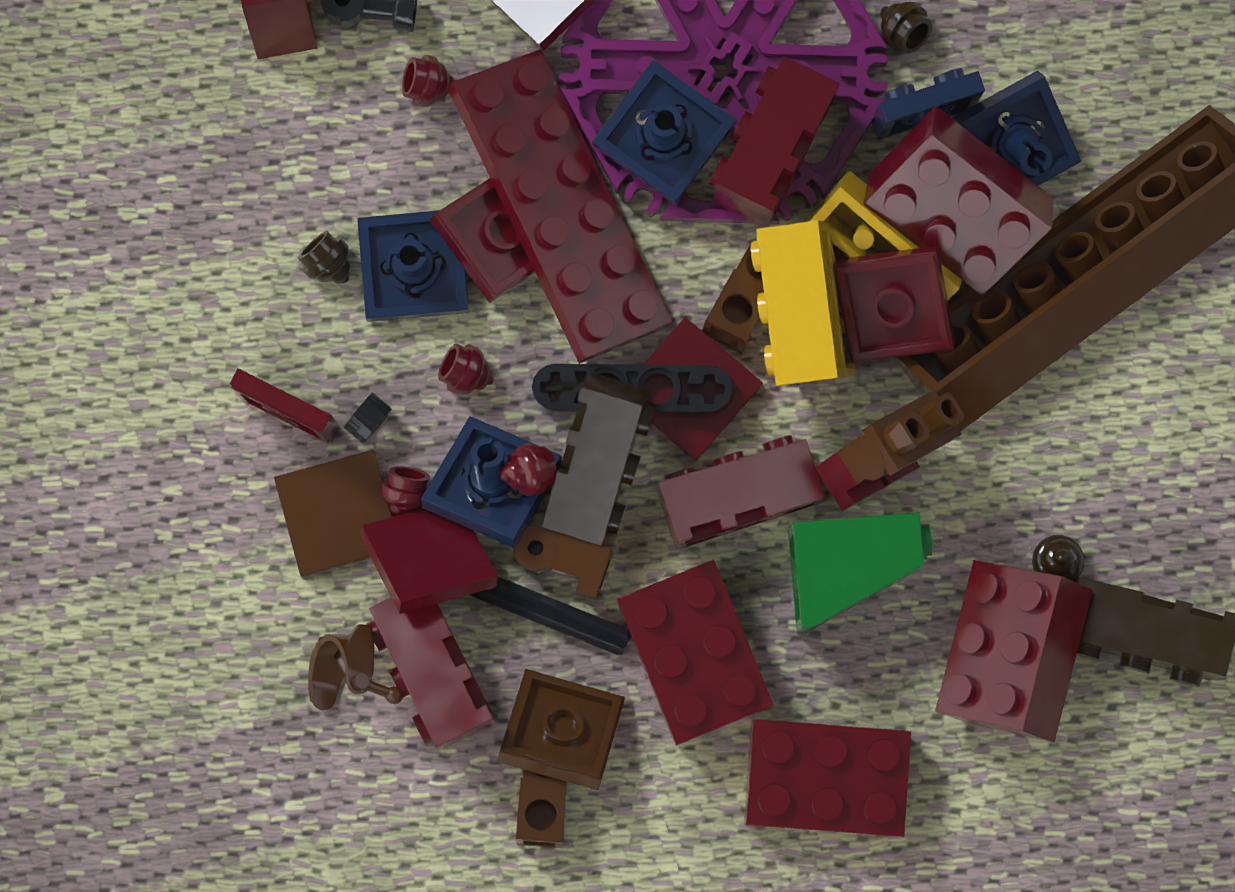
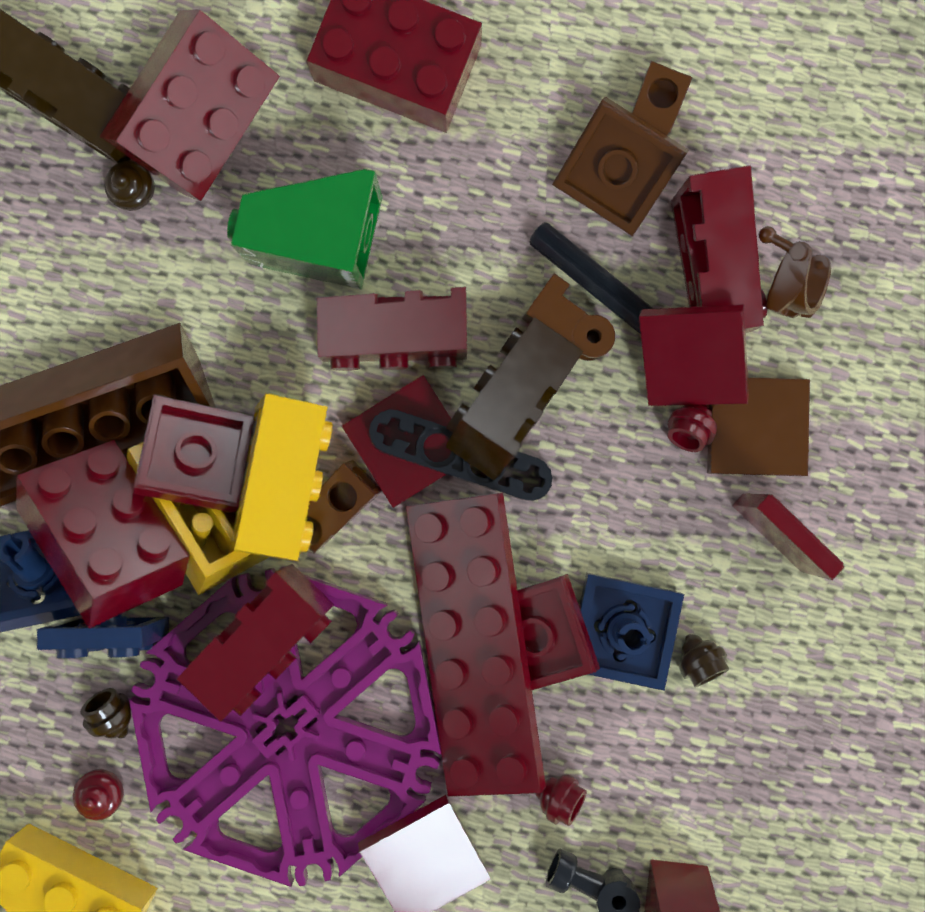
camera: 165 degrees left, 5 degrees up
(367, 418) = (707, 503): black axle -> none
(465, 369) = (606, 520): dark red plate -> none
(482, 453) = (618, 413): dark blue plate -> none
(530, 469) = (582, 402): dark red plate -> none
(662, 99) = (348, 714): dark blue plate -> none
(694, 652) = (480, 197): dark red brick -> none
(891, 448) = (238, 319): reddish brown hips -> none

